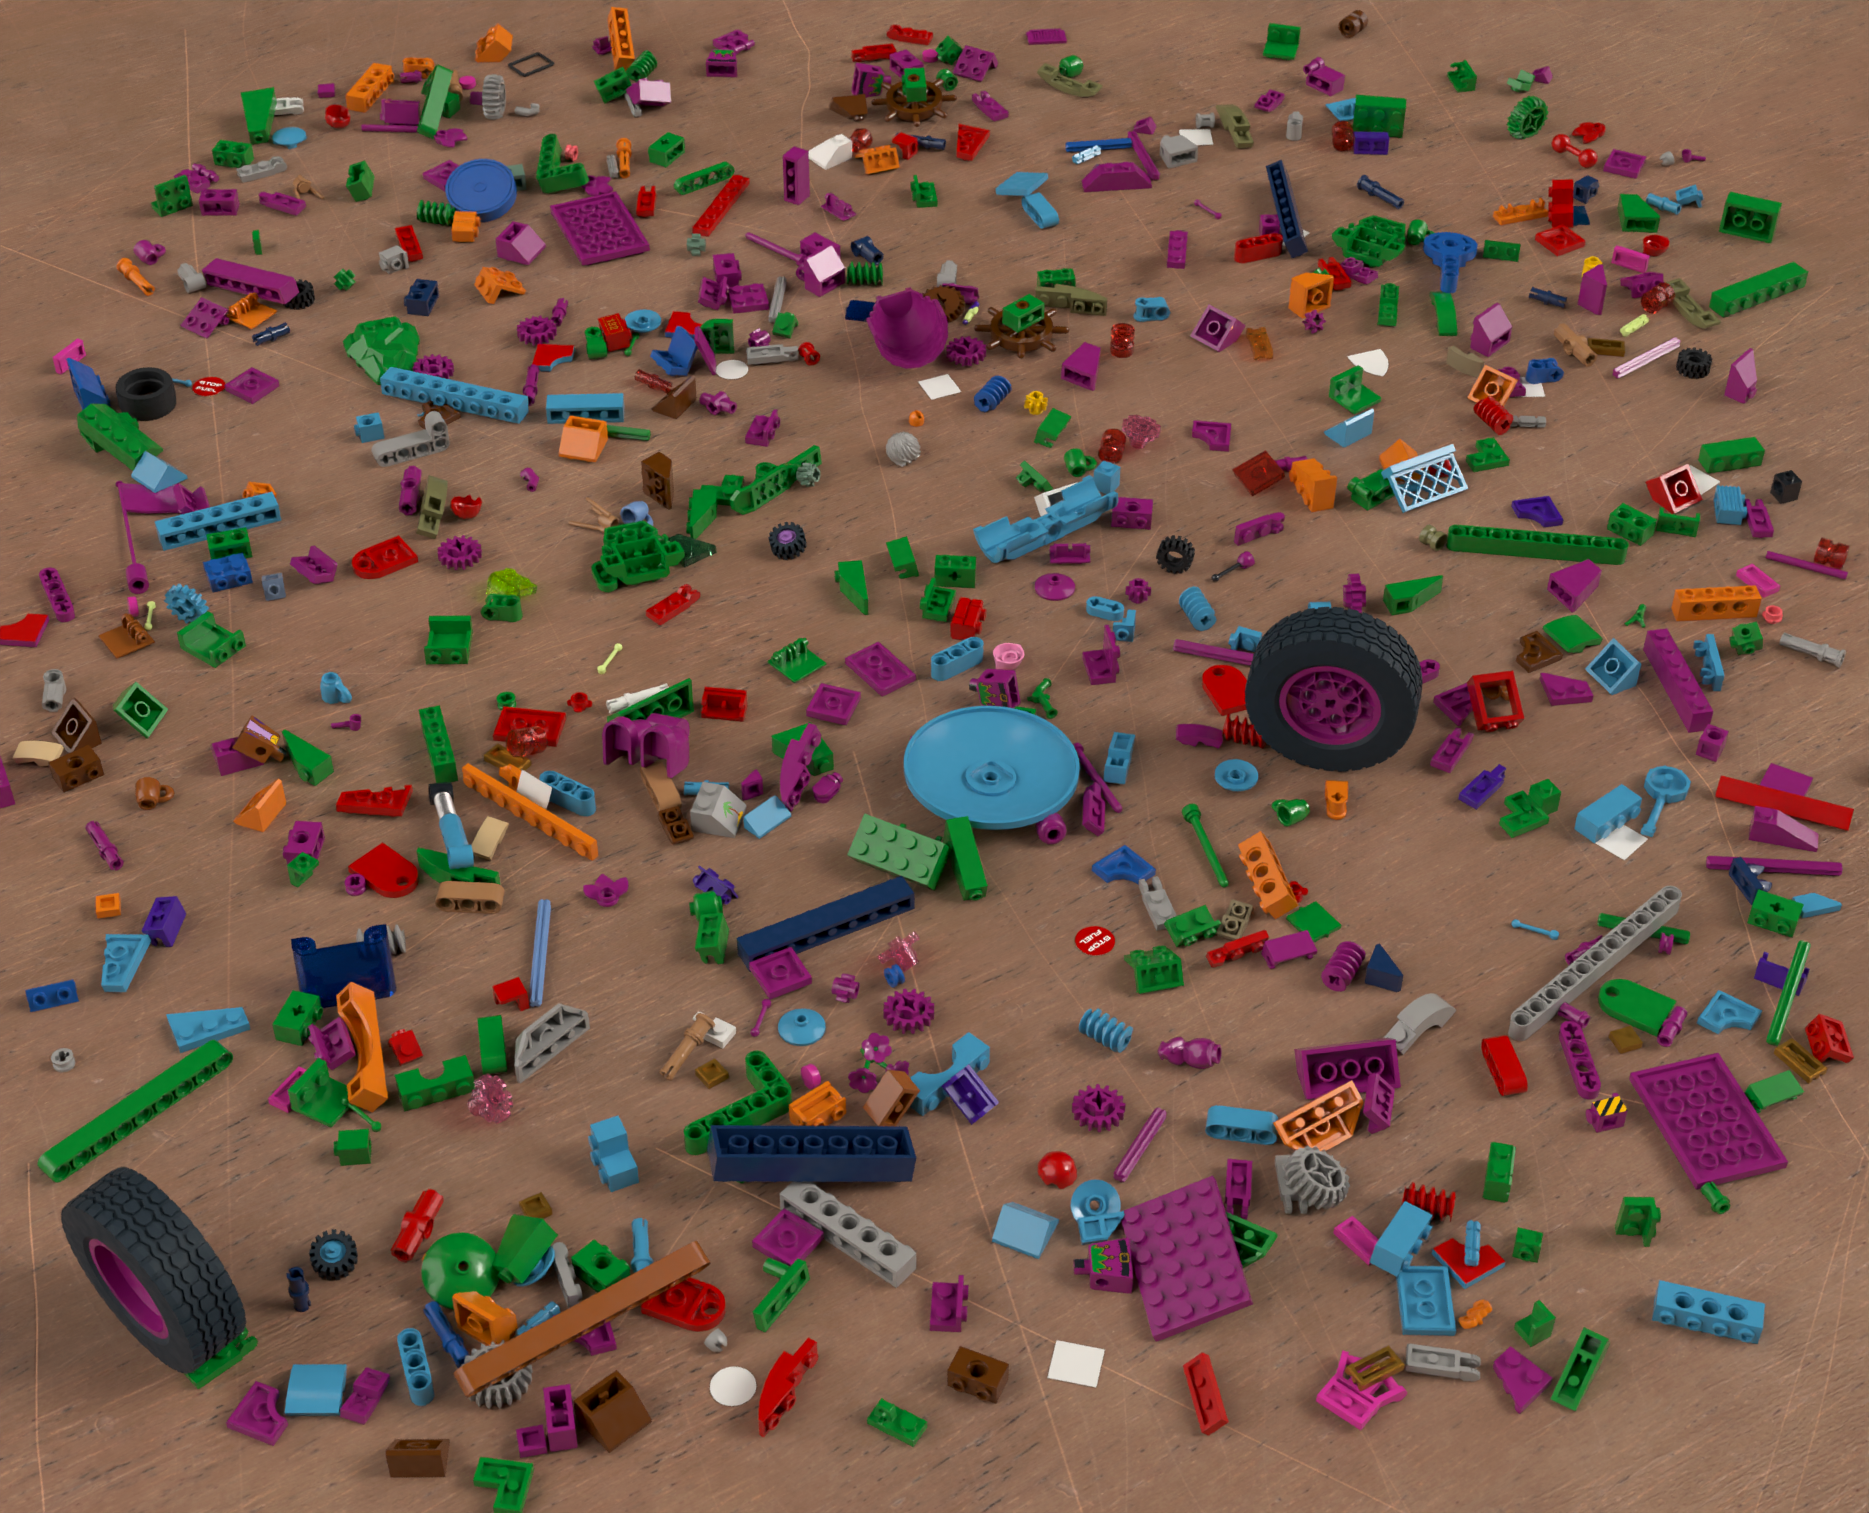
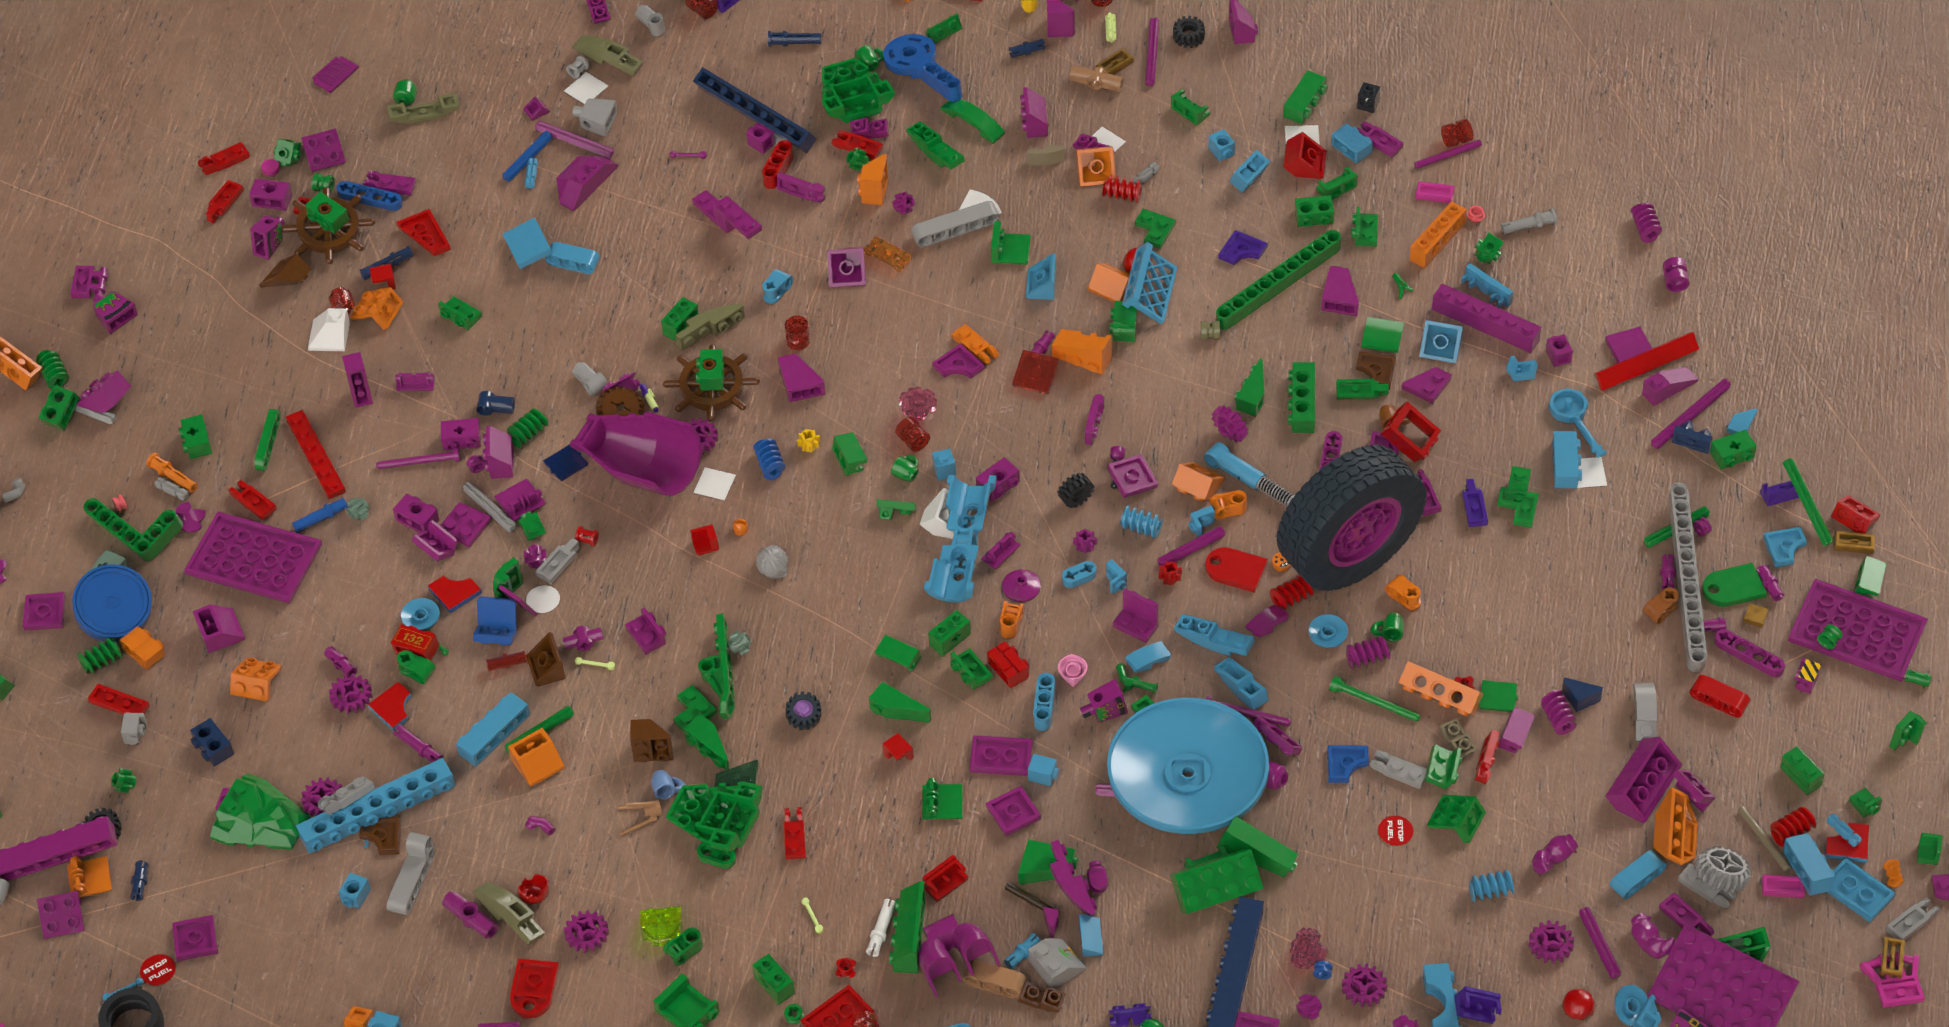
camera: 45 degrees left, 10 degrees up
(439, 371) = (346, 795): none -> light grey hinge
(522, 668) = (773, 979): none -> green brick
(671, 234) = (319, 515): none -> blue pin
(713, 432) = (610, 665): none -> yellowish green hinge
(763, 766) = (1027, 897): none -> dark brown bar
(803, 308) = (520, 499): none -> magenta hinge
(814, 605) = (897, 748): none -> red panel
(881, 408) = (704, 539): none -> red panel
(891, 695) = (1043, 770): none -> dark azure brick
(967, 104) = (389, 200): none -> blue beam
(1010, 596) = (1010, 619): none -> orange piece
(1072, 688) = (1147, 656): none -> dark azure slope
(1142, 713) = (1210, 636): none -> dark azure slope
(1170, 653) = (1170, 573): none -> red gear
(1184, 1167) = (1648, 937): none -> magenta animal
(1233, 578) = (1132, 476): none -> magenta plate
(1242, 430) = (975, 343): none -> orange hinge
(1245, 811) = (1366, 651): none -> magenta piece
(1254, 270) = (800, 188): none -> magenta hinge
(1274, 607) = (1197, 481): none -> orange slope
(1333, 355) = (955, 223): none -> light grey beam
(1395, 1192) = (1764, 839): none -> dark tan bar
(1444, 625) = (1303, 397): none -> green brick
(1500, 652) = (1360, 389): none -> green hinge
(1540, 371) = (1105, 121): blue piece -> none
(1543, 965) = (1661, 605): none -> dark orange piece
(1553, 934) = (1634, 577): dark azure hinge -> none
(1612, 466) = (1249, 171): none -> dark azure brick
(1615, 440) = (1221, 145): none -> dark azure brick
(1624, 404) = (1188, 108): none -> green hinge
(1656, 731) = (1521, 370): none -> dark azure bracket
(1659, 562) = (1366, 228): none -> green bracket
(1665, 1097) = (1830, 636): none -> green wheel

